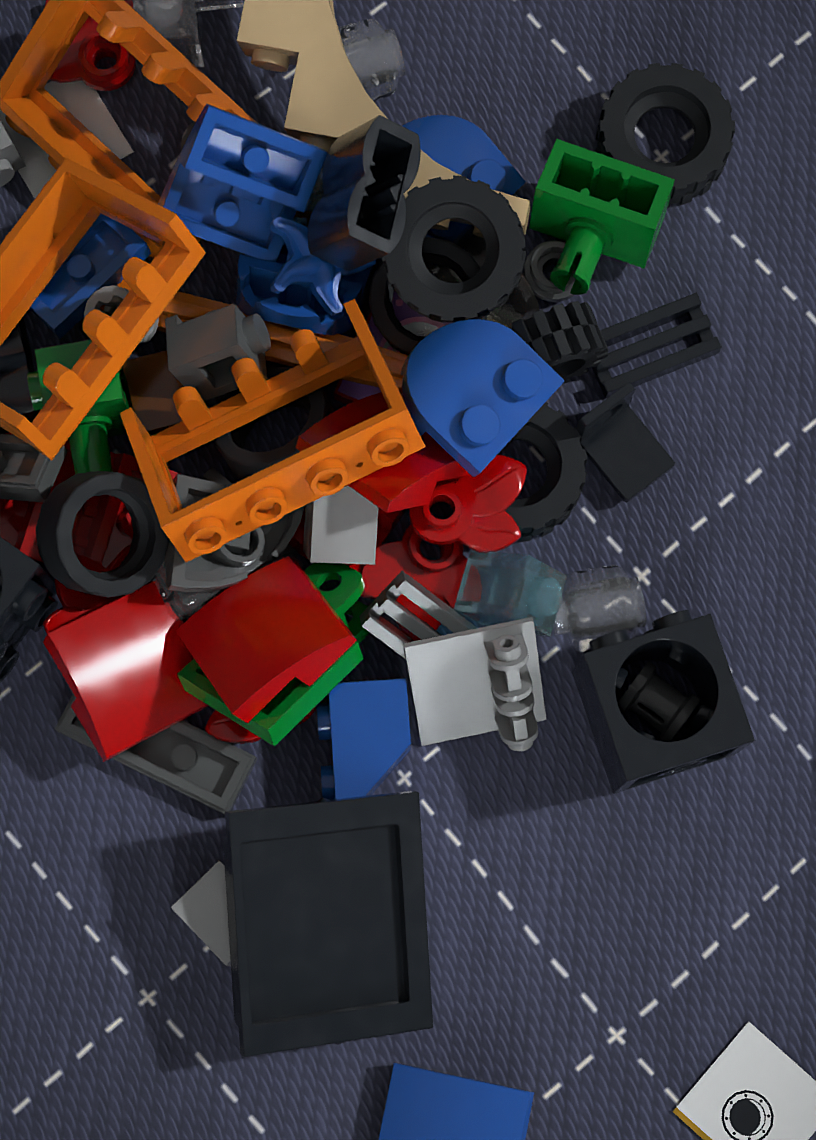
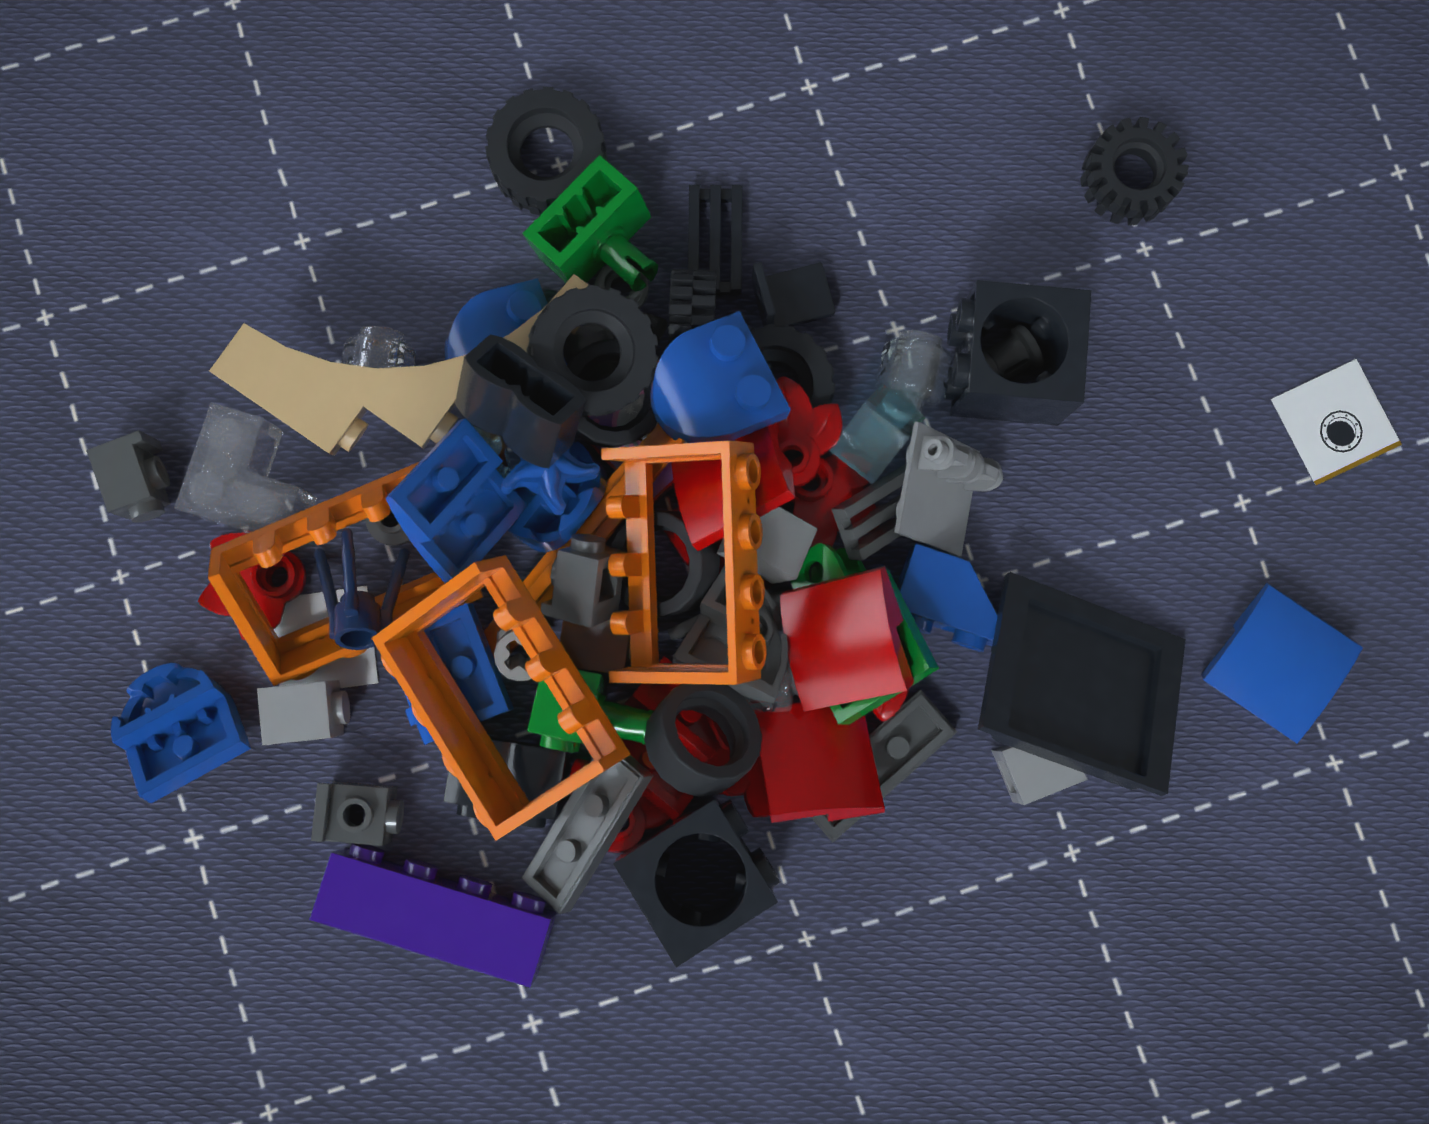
camera: 65 degrees left, 5 degrees up
(95, 143) = (357, 614): none -> dark blue plant

